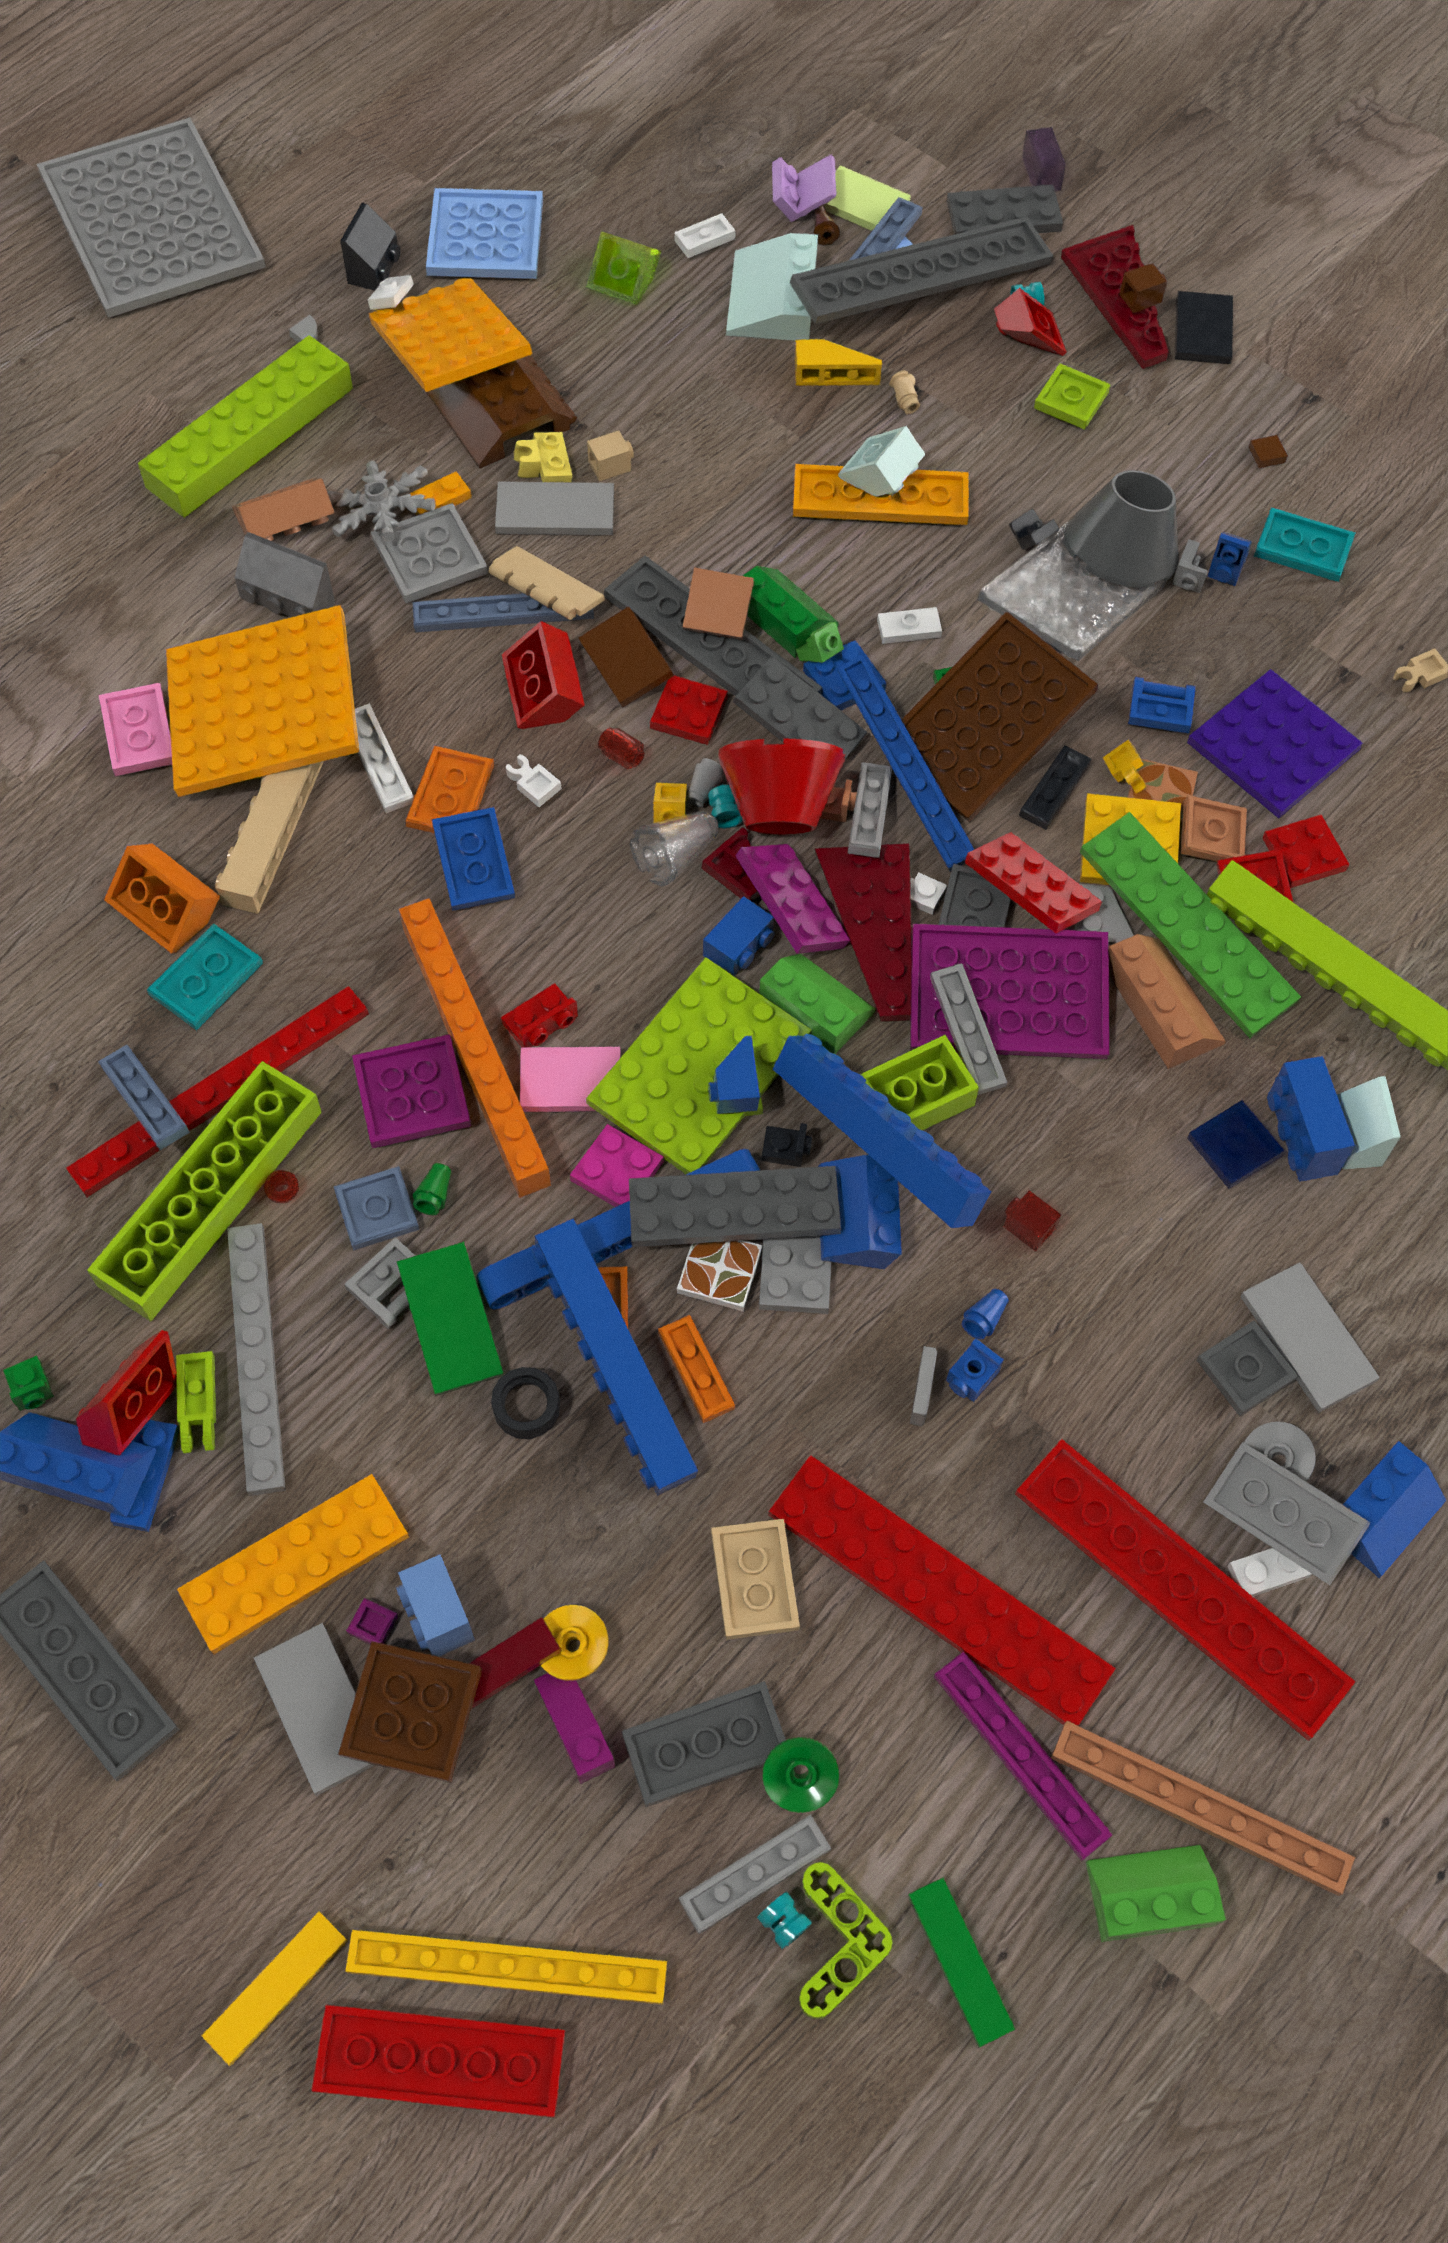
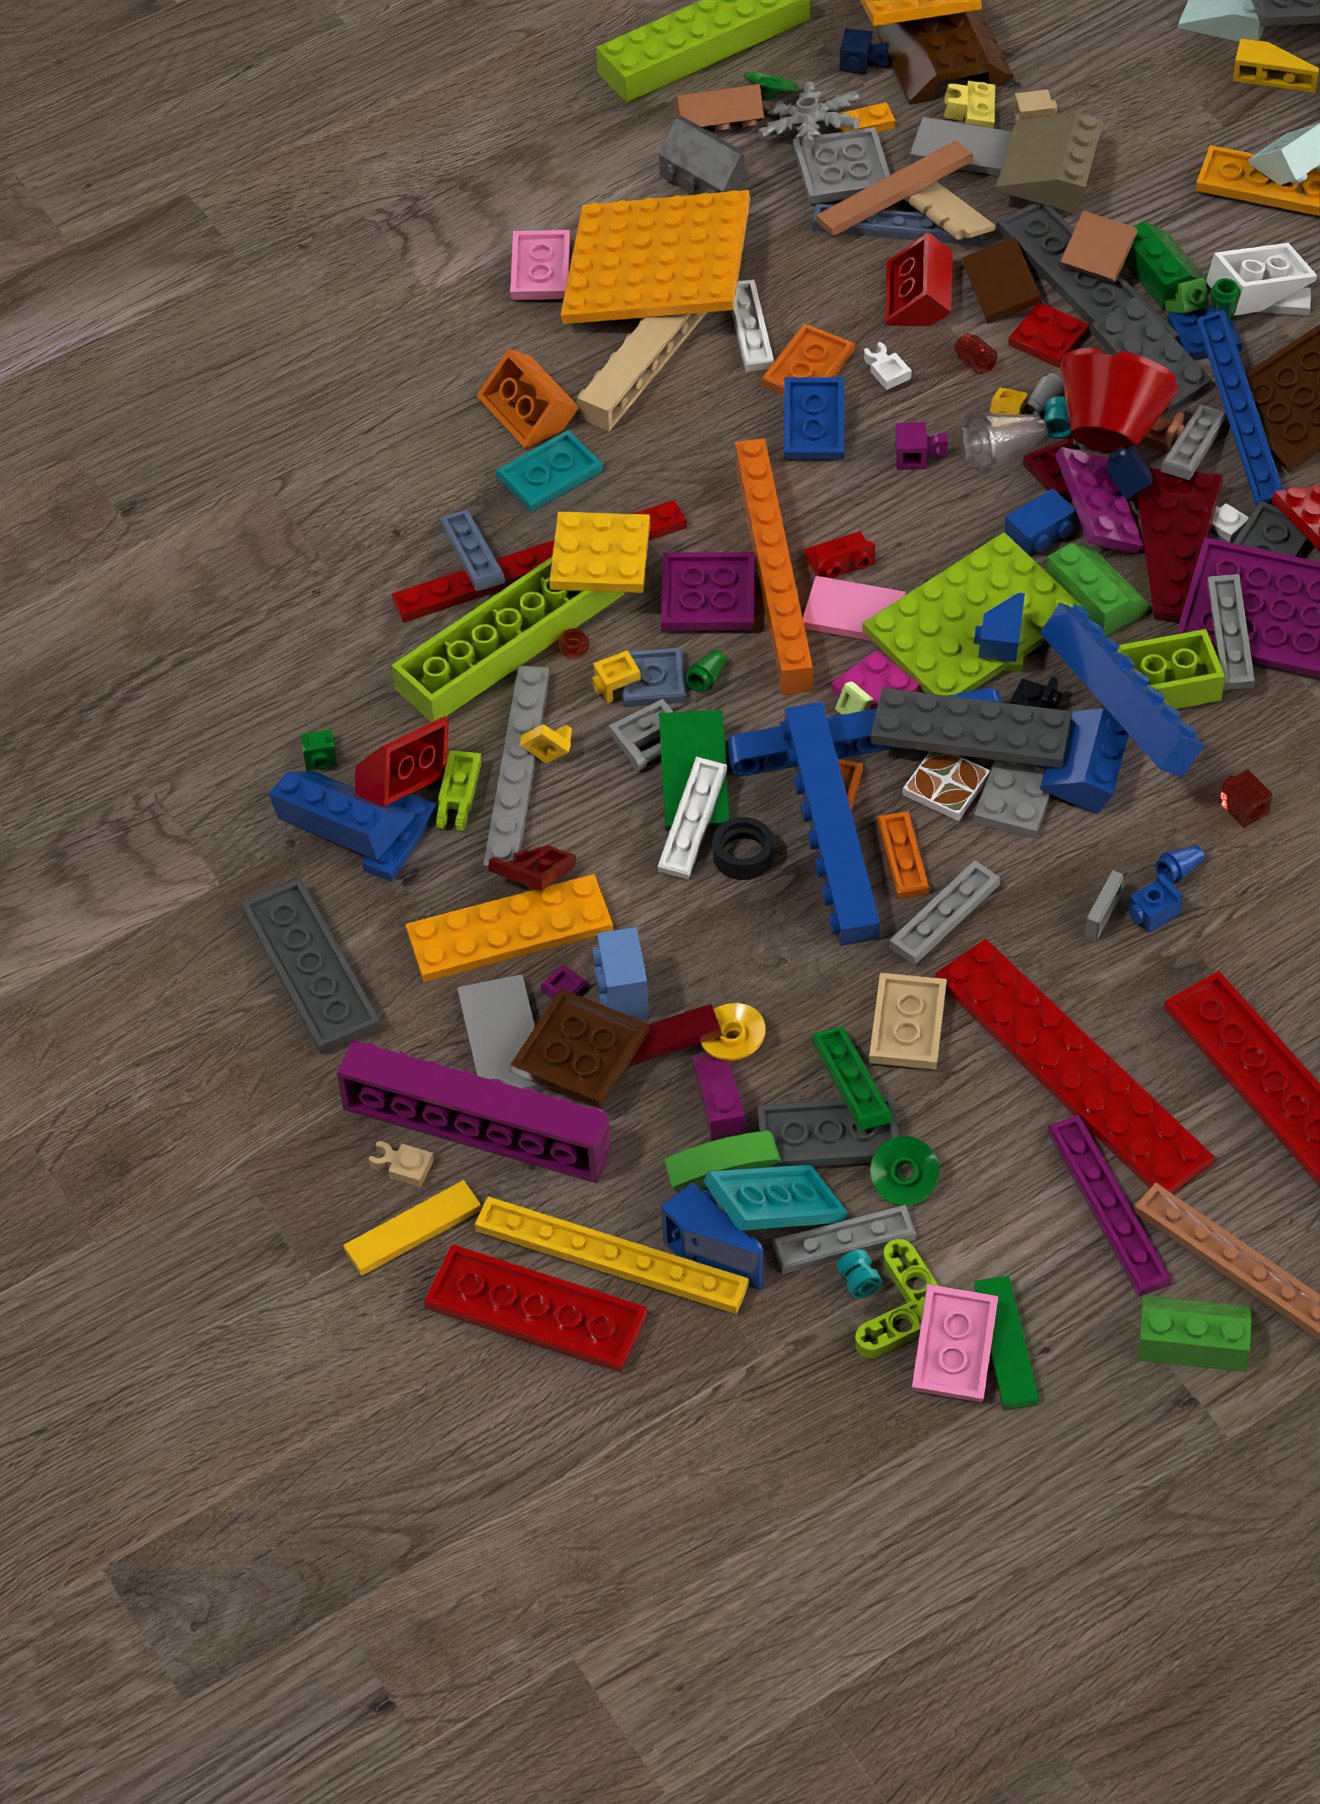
camera: 20 degrees right, 10 degrees down
(250, 1904) = (405, 1165): none -> tan plate
(283, 1321) = (546, 743): none -> yellow bracket
(286, 1079) = (600, 552): none -> yellow plate
(305, 1485) = (535, 867): none -> dark red wing
(310, 1825) = (475, 1111): none -> magenta brick
(331, 470) = (770, 84): none -> green dish
(336, 1218) = (614, 673): none -> yellow bracket
(414, 418) = (858, 51): none -> dark blue brick
(462, 1380) = (692, 818): none -> white tile
(490, 572) = (894, 188): none -> nougat tile
(585, 870) = (914, 445): none -> magenta brick
(599, 1195) = (853, 699): none -> yellowish green tile
(601, 1817) = (729, 1153): none -> bright green slope
(614, 1928) = (704, 1233): none -> blue slope
(642, 510) = (1050, 159): none -> dark tan slope
(673, 1861) = (774, 1197): none -> teal plate
(714, 1671) = (851, 1078): none -> green tile
(759, 1433) = (944, 912): none -> light grey plate
(816, 861) = (1128, 471): none -> dark blue brick
(861, 639) = (1225, 296): none -> green cone
(885, 607) = (1261, 274): none -> white slope
(910, 1988) = (954, 1343): none -> bright pink plate

